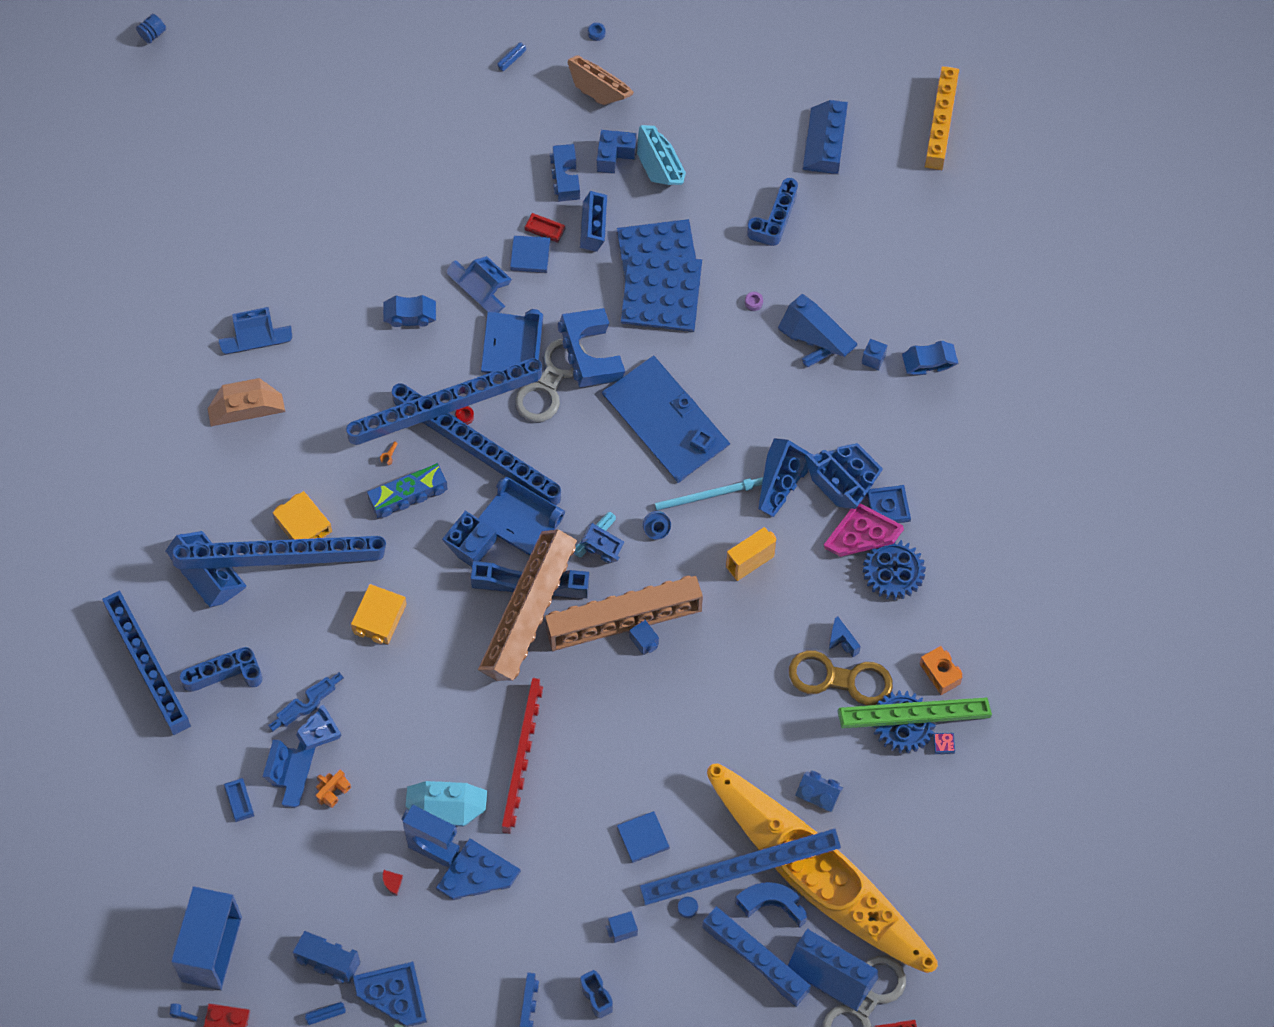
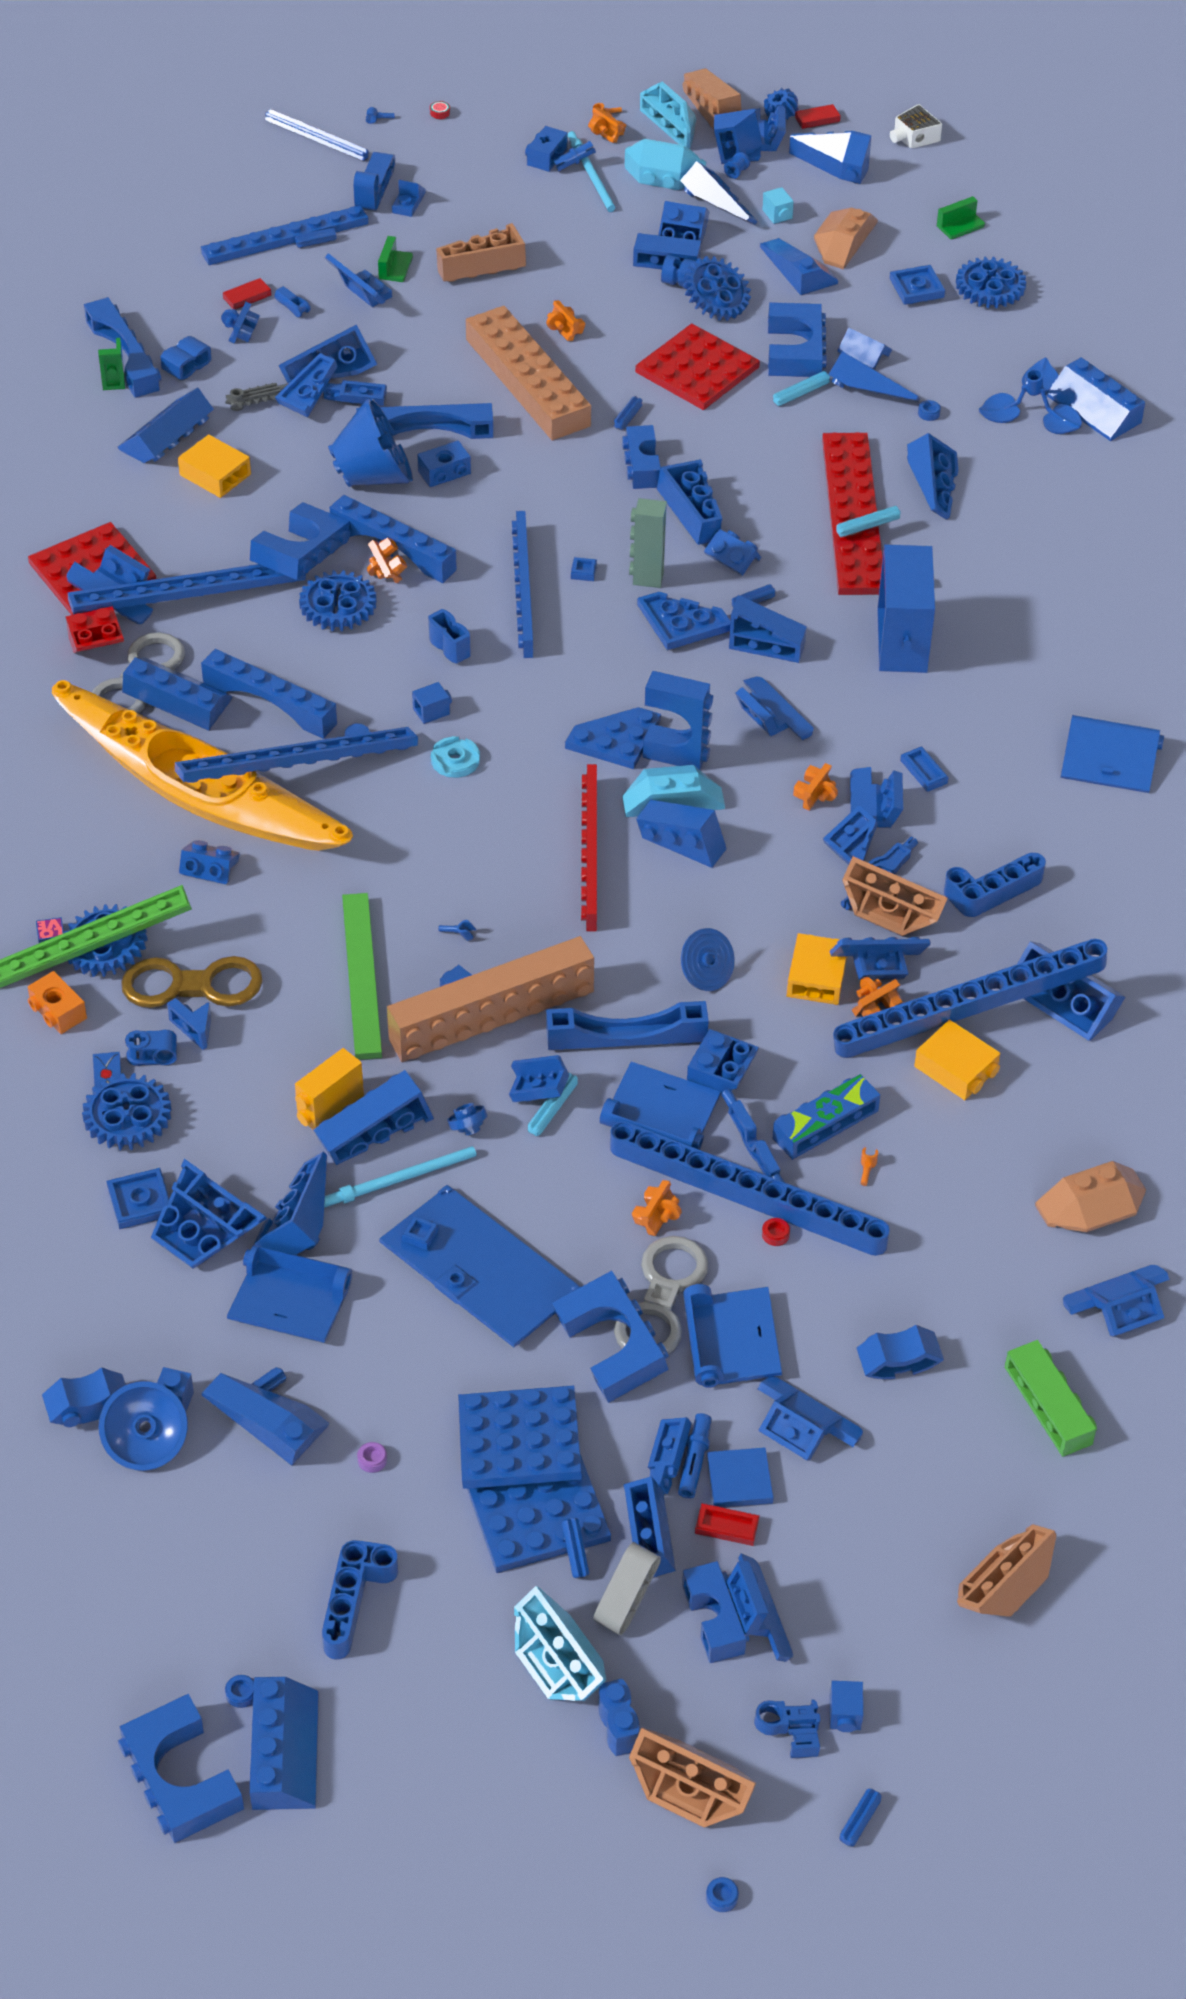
camera: 170 degrees right, 15 degrees down
(86, 788) = (1111, 753): none -> blue door
(146, 663) = (1096, 874): blue brick -> none
(304, 661) = (890, 899): none -> nougat wedge
(324, 270) = (1050, 1397): none -> bright green brick
(330, 610) = (880, 957): none -> blue bracket
(344, 582) = (886, 994): none -> orange hips
(345, 879) = (771, 709): none -> blue plate
(392, 164) = (1009, 1573): none -> nougat wedge
(392, 881) = (719, 717): red tile -> none
(438, 408) = (803, 1211): blue beam -> none
(450, 755) = (684, 830): none -> blue wedge
(459, 627) = (707, 959): none -> blue shield
(463, 480) = (757, 1149): none -> blue piece
(503, 110) = (846, 1705): none -> blue brick
(528, 605) = (620, 976): nougat brick -> none
(534, 107) = (799, 1721): none -> blue piece
(540, 168) = (757, 1606): none -> blue plate
(546, 433) = (660, 1208): none -> orange hips
(551, 275) = (697, 1445): none -> blue pin
(570, 272) = (668, 1451): none -> blue hinge
(613, 146) = (648, 1664): blue brick -> none
(614, 883) = (459, 766): none -> medium azure tile
(615, 183) = (627, 1588): none -> light grey beam
(633, 116) = (618, 1716): none -> blue brick
(634, 693) = (463, 928): none -> blue hand
(640, 218) = (575, 1547): none -> blue axle
(643, 837) = (423, 792): blue tile -> none
(714, 668) = (361, 976): none -> bright green tile
(720, 531) = (374, 1118): none -> blue wedge
(771, 895) = (233, 742): blue arch -> none
(794, 414) = (290, 1293): none -> blue door
(847, 174) = (240, 1691): none -> blue tile
(862, 531) = (170, 1140): dark pink plate -> none
(871, 620) = (153, 1047): none -> blue piece
(887, 111) = (181, 1809): none -> blue arch
(895, 329) = (122, 1420): none -> blue dish
(906, 610) = (105, 1066): none -> blue tile
(942, 118) = (80, 1810): light orange brick -> none

